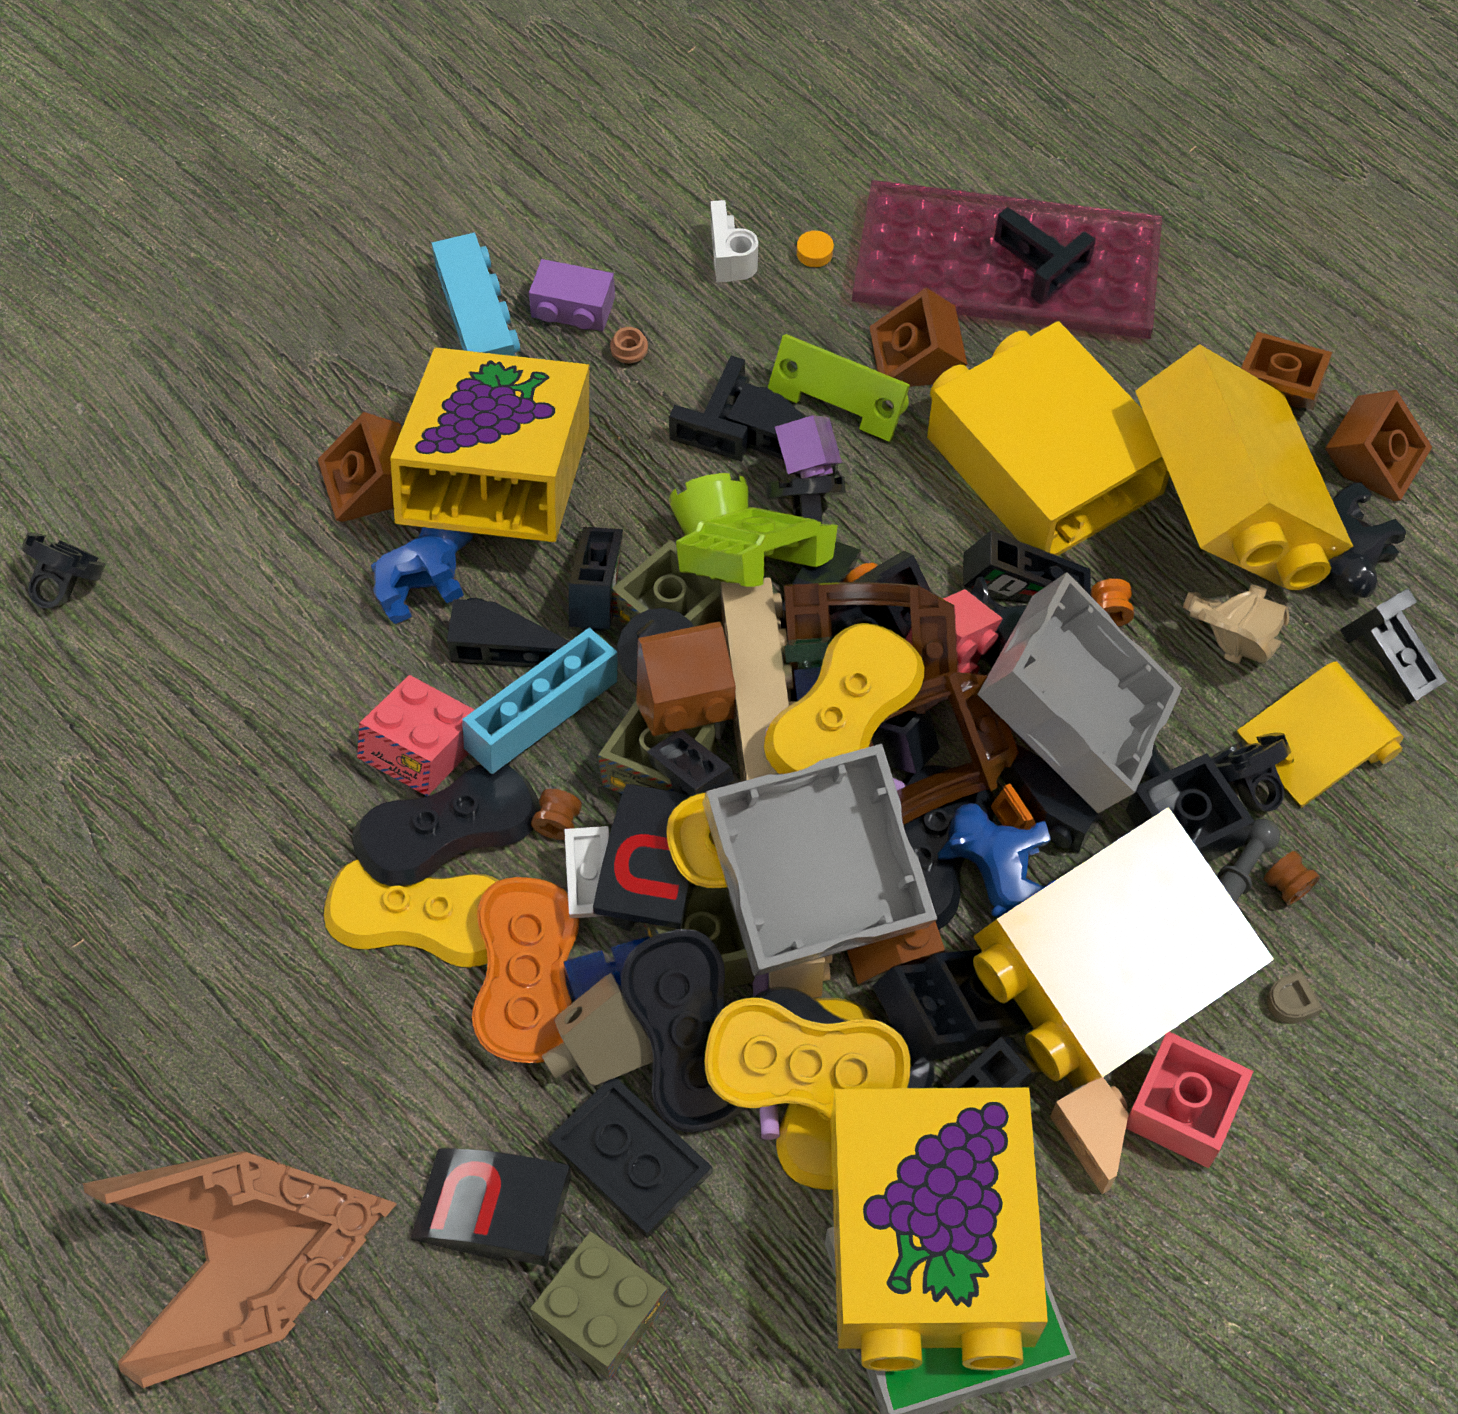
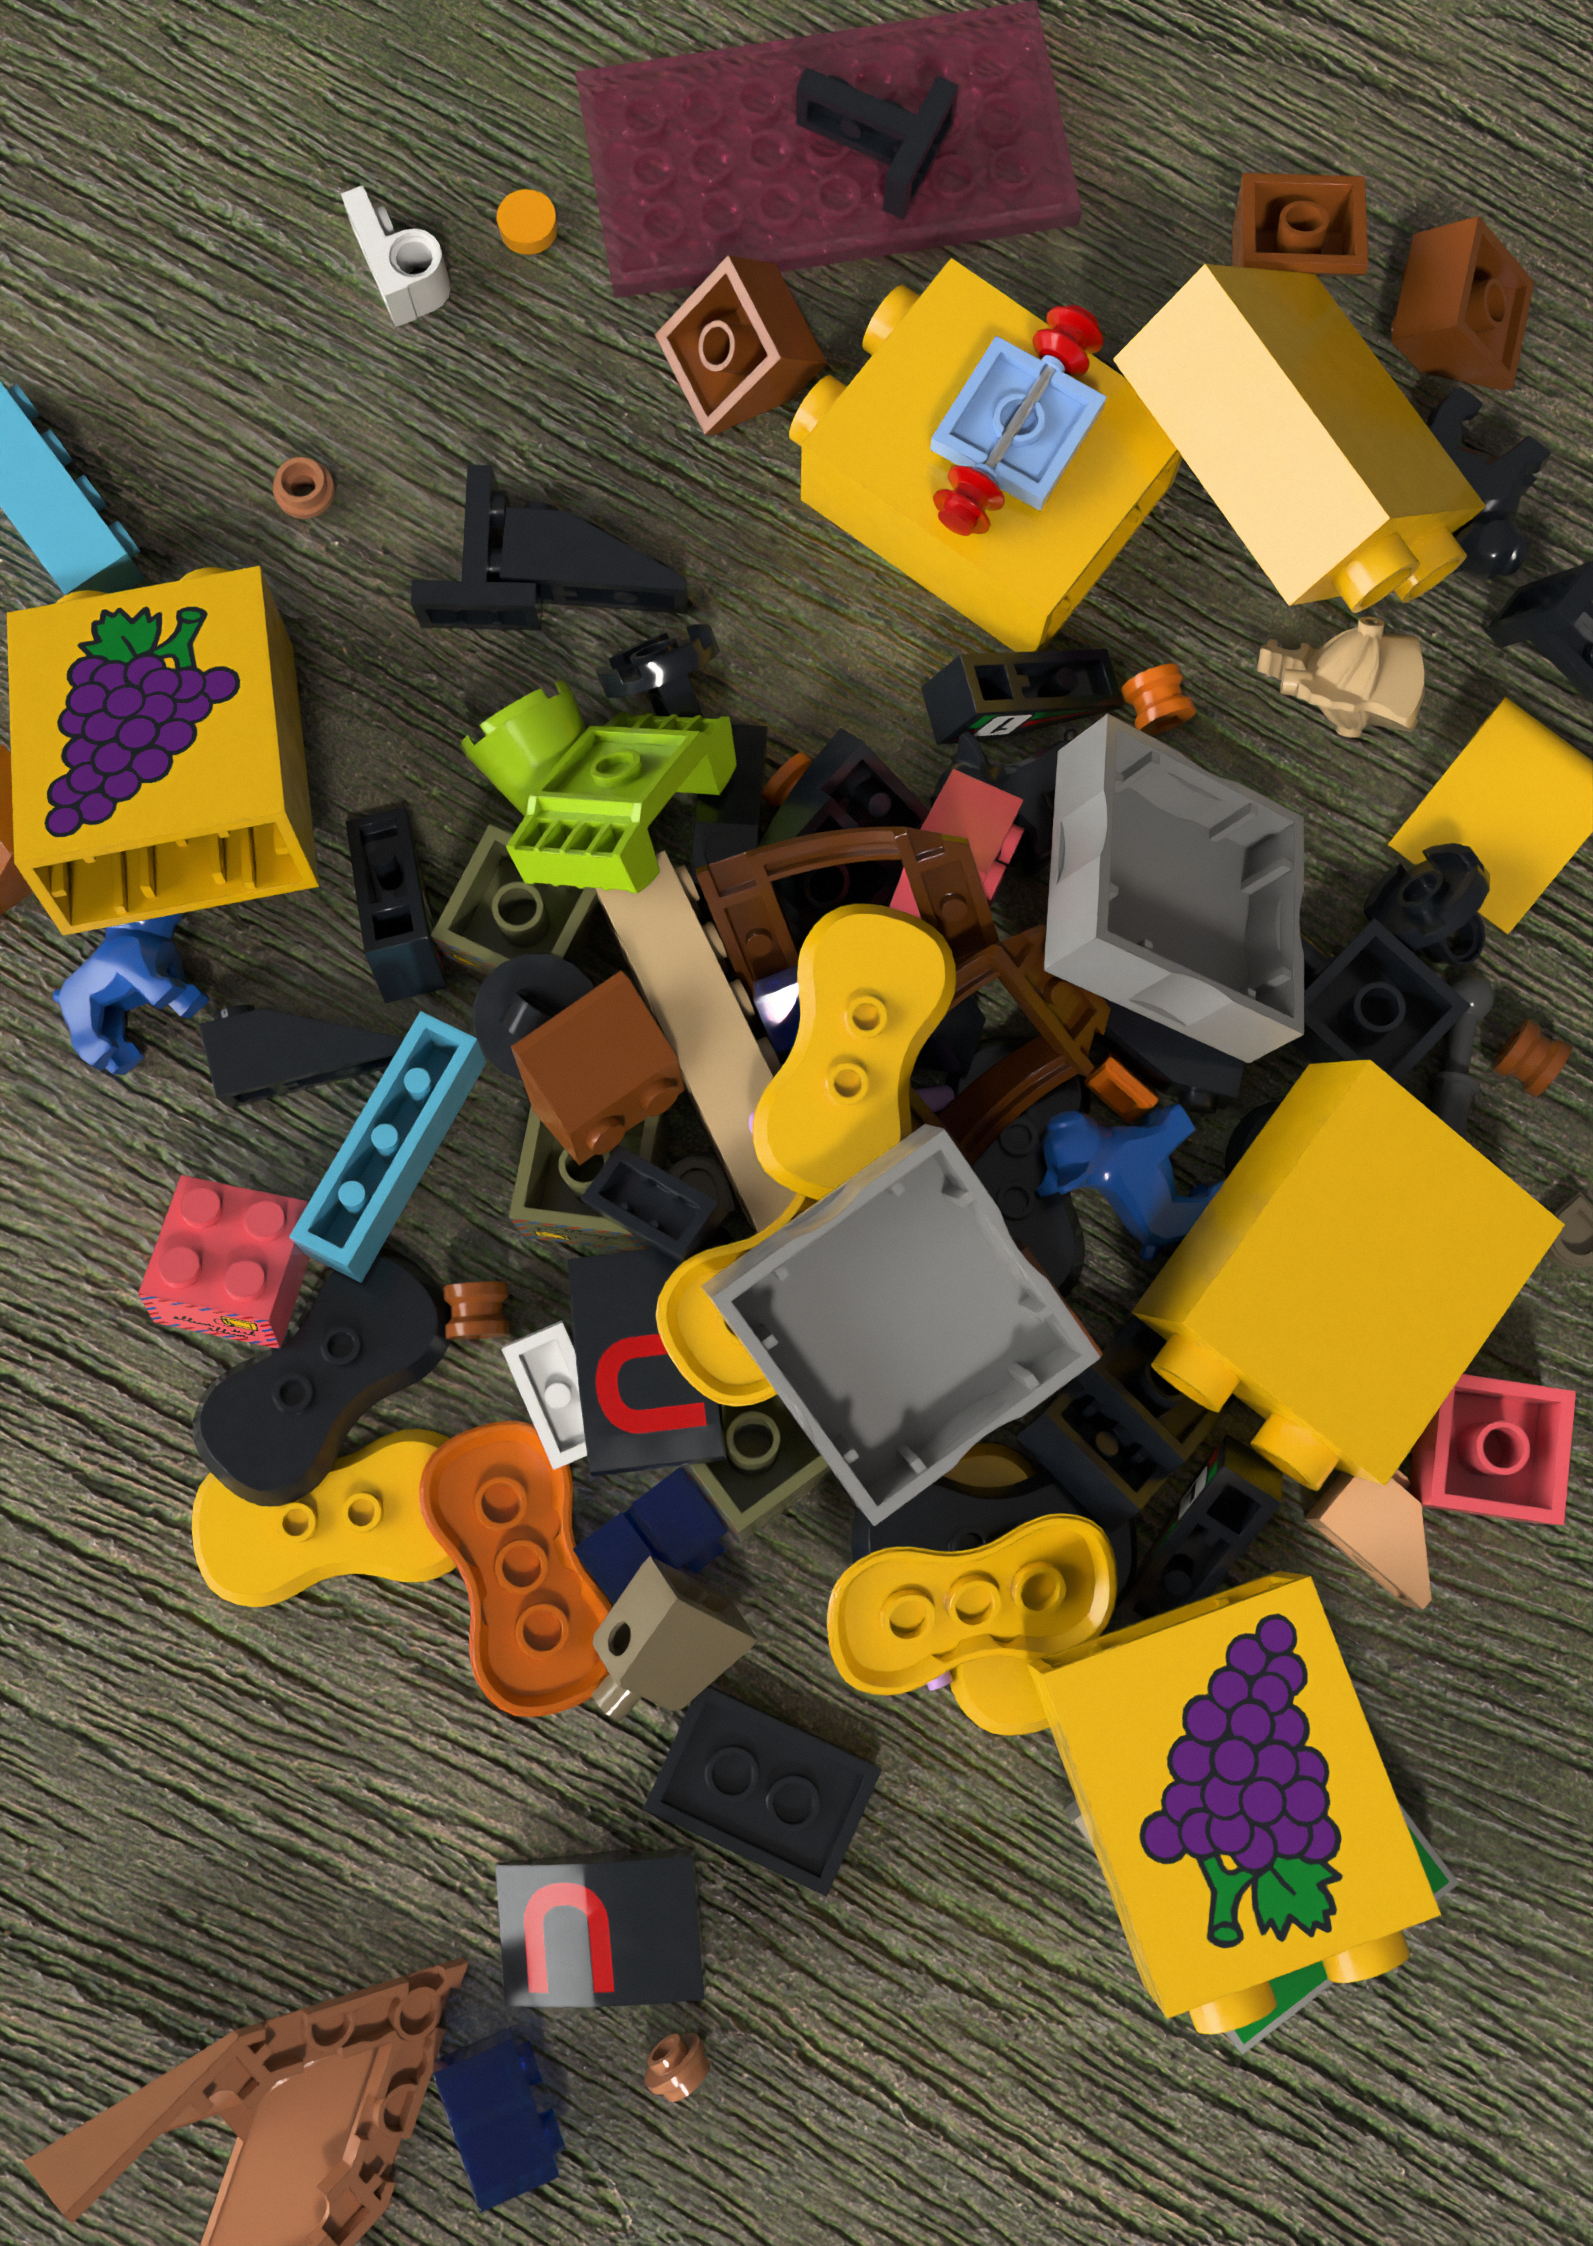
camera: 20 degrees left, 20 degrees up
(379, 1296) = (496, 2118): none -> clear blue piece
(507, 1308) = (676, 2066): none -> nougat plate
(572, 295) = (183, 428): medium lavender brick -> none
(599, 1305) = (800, 2023): olive brick -> none
(676, 994) = (764, 1575): black plate -> none
(807, 652) = (764, 959): clear green plate -> none
(808, 446) = (645, 603): medium lavender brick -> none
(840, 384) = (646, 459): lime brick -> none
(1067, 411) = (1018, 421): none -> light blue plate

